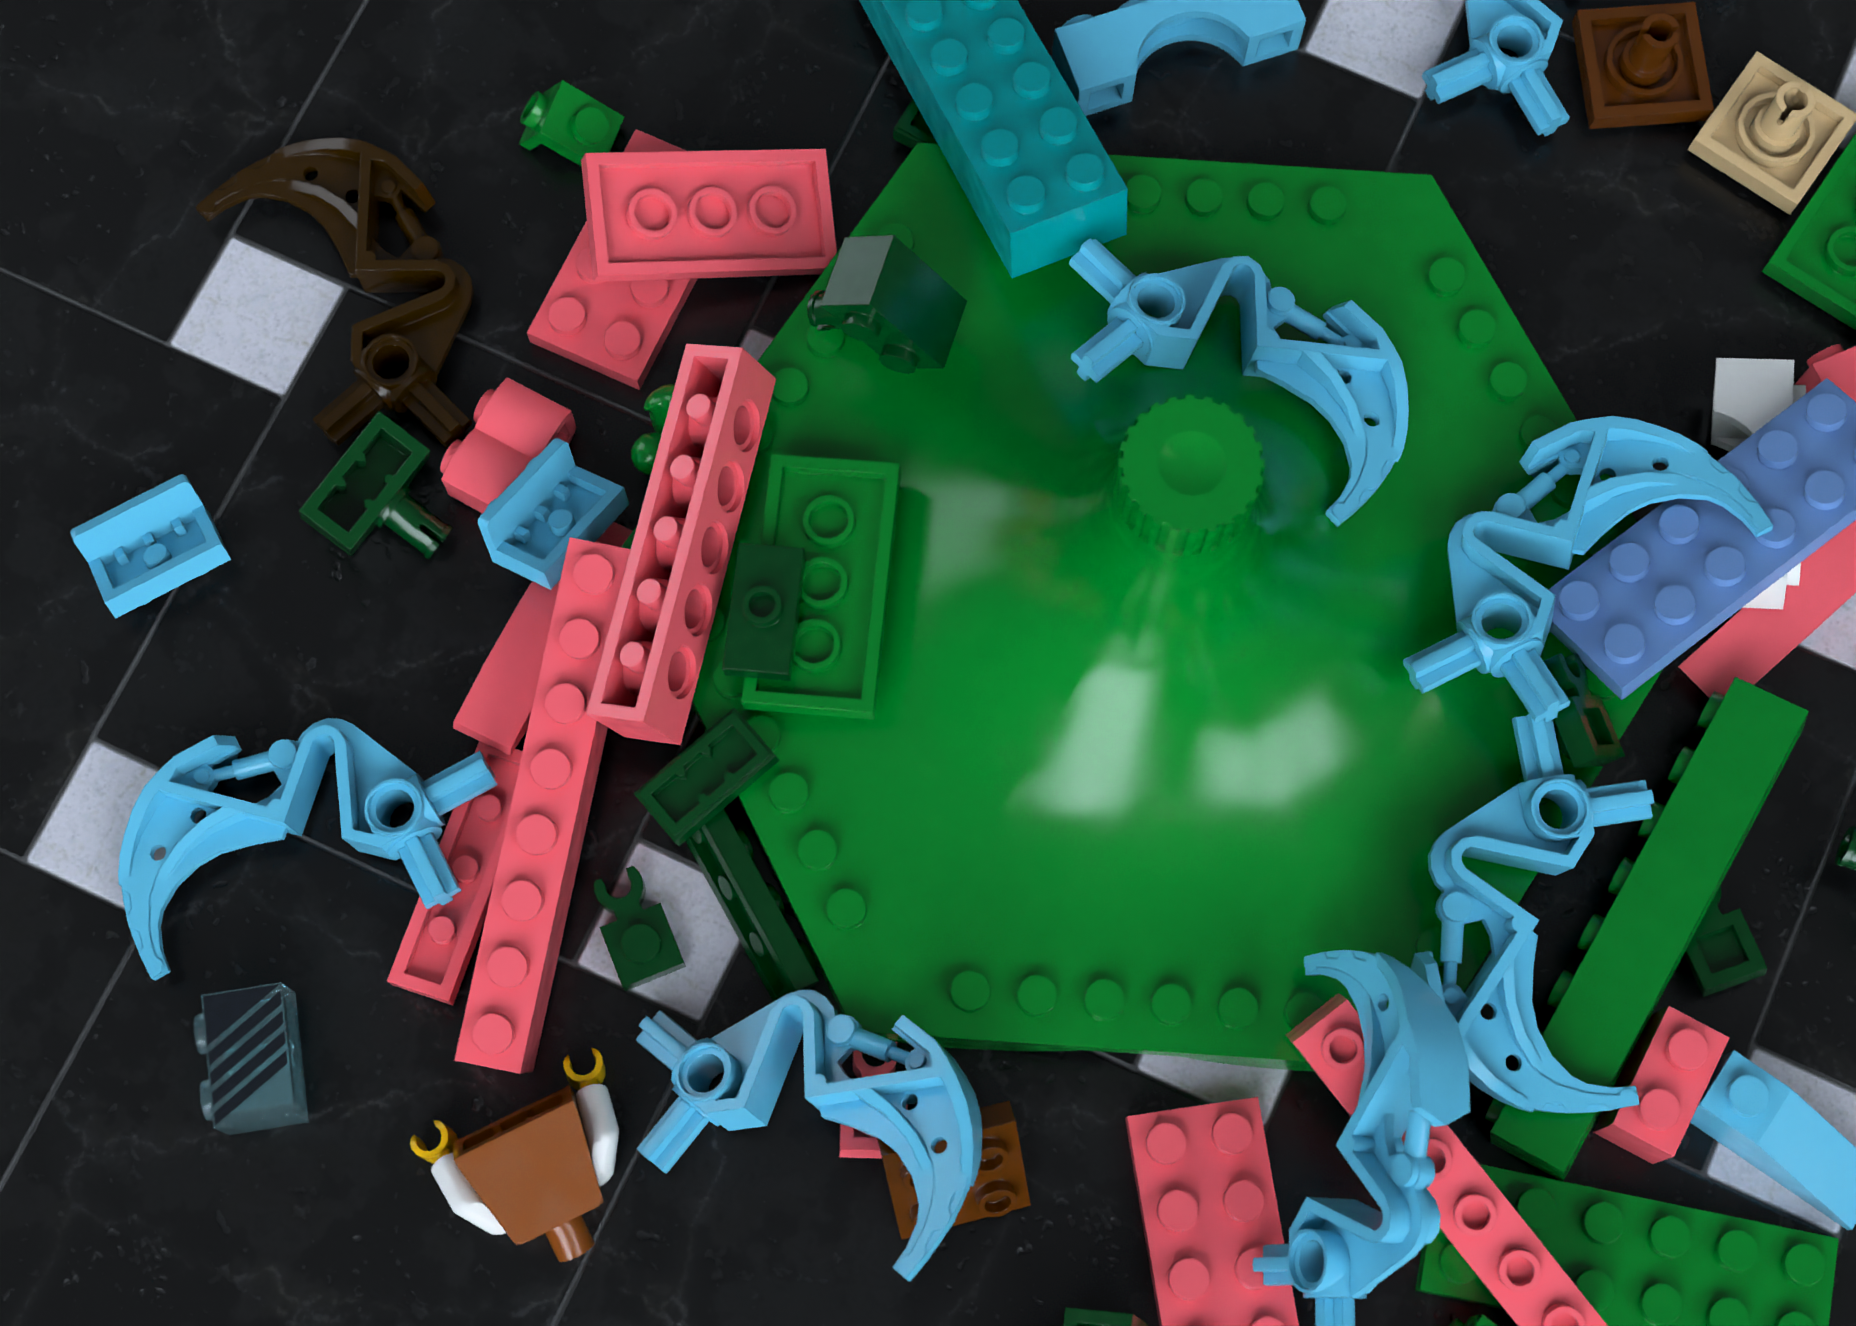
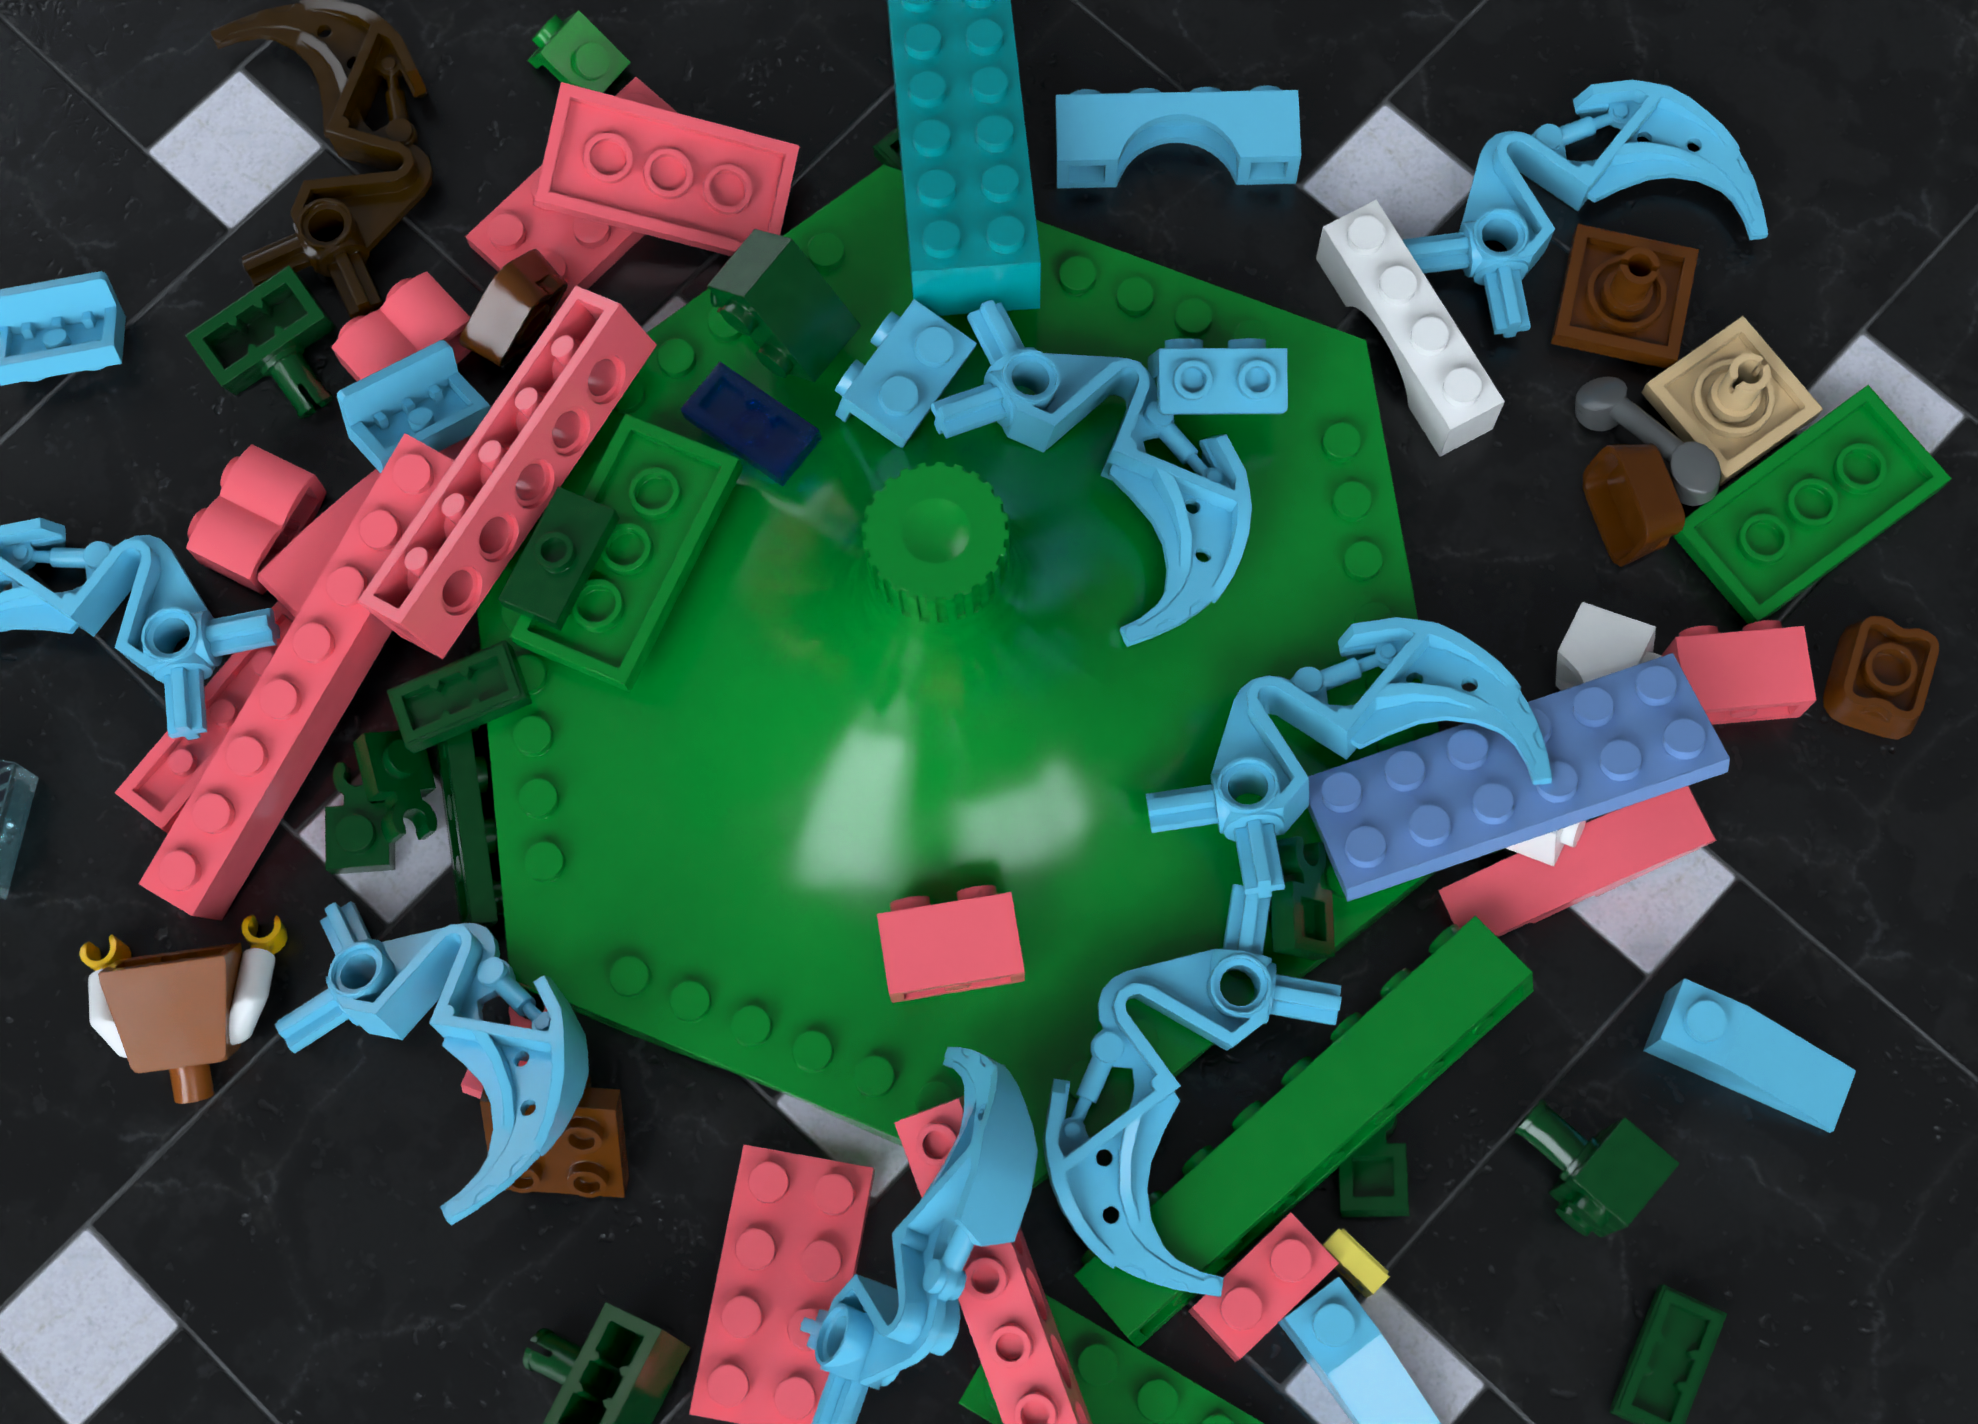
camera: 25 degrees right, 0 degrees up
(423, 669) = (255, 515): none -> coral brick
(610, 388) = (514, 308): none -> reddish brown piece
(663, 874) = (400, 780): none -> dark green plate
(894, 426) = (751, 423): none -> clear blue plate
(1026, 334) = (905, 374): none -> medium azure bracket
(1273, 859) = (950, 944): none -> coral brick
(1325, 252) = (1220, 380): none -> medium azure bracket
(1509, 187) = (1439, 369): none -> white arch
(1722, 252) = (1632, 500): none -> reddish brown piece
(1745, 1036) = (1356, 1263): none -> light yellow tile
(1768, 203) = (1693, 466): none -> dark grey bar

